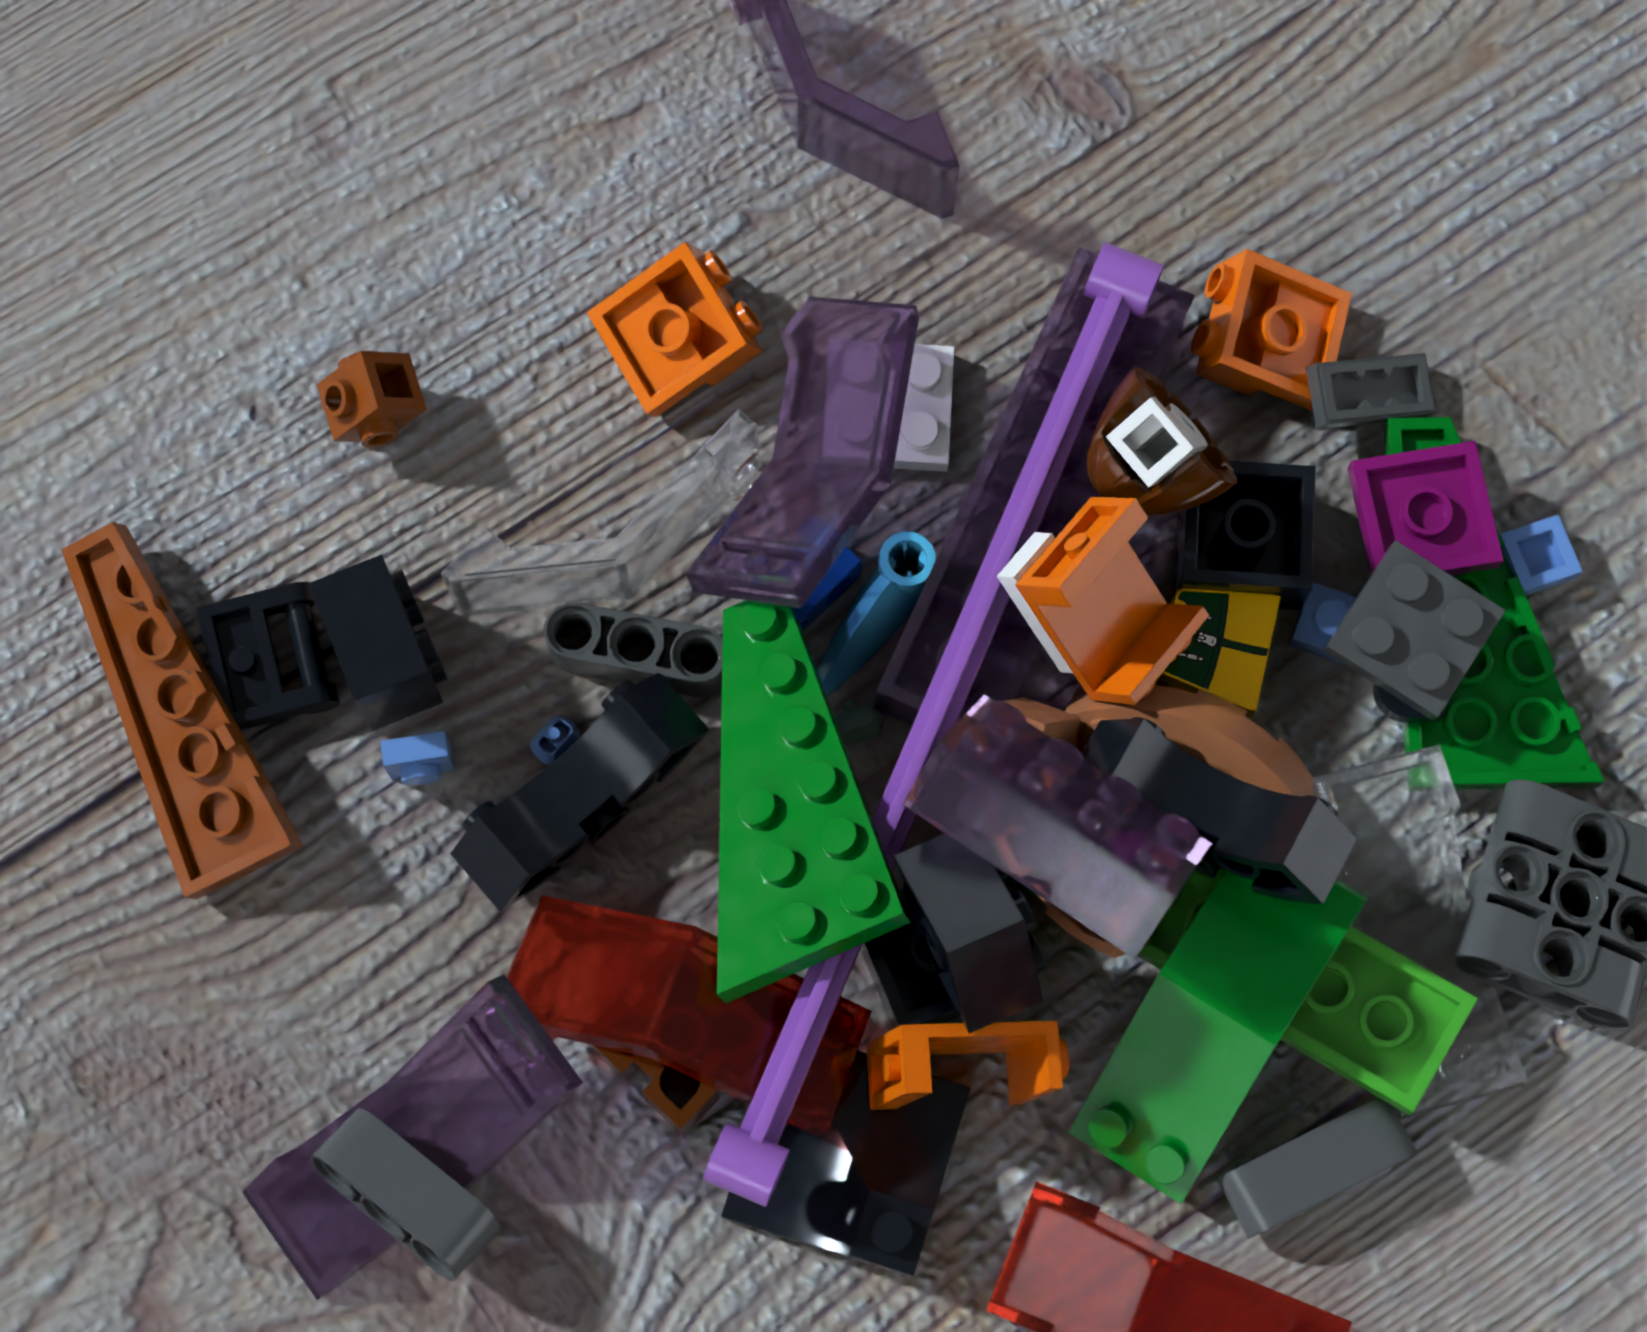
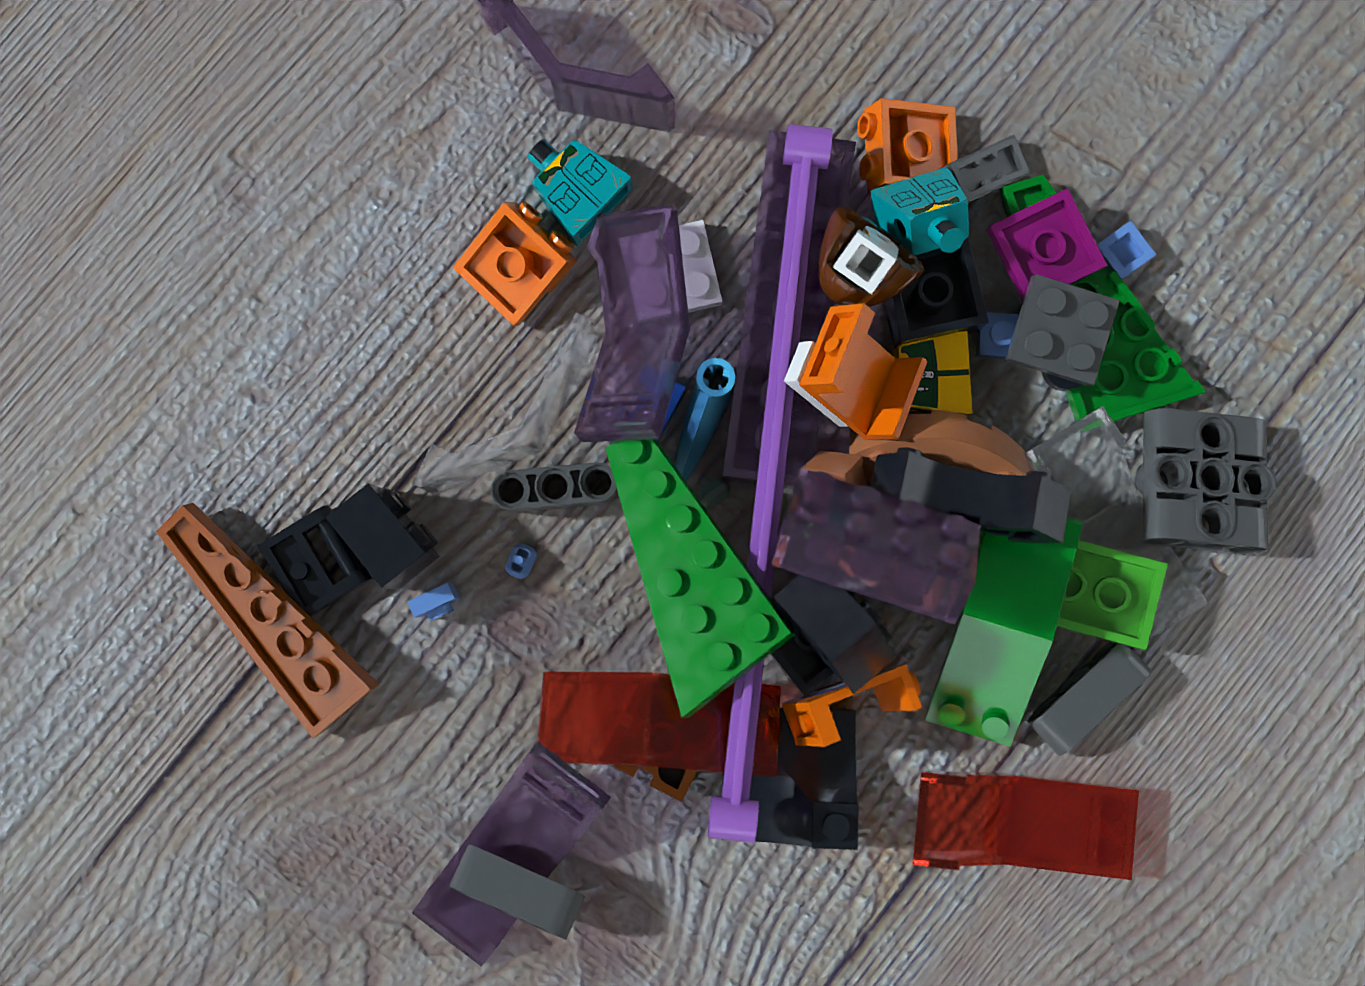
camera: 15 degrees left, 10 degrees up
(371, 397) = (327, 369): dark orange brick -> none
(581, 794) = (549, 594): black brick -> none
(793, 252) = (577, 186): none -> teal torso
(1261, 415) = (923, 212): none -> teal torso

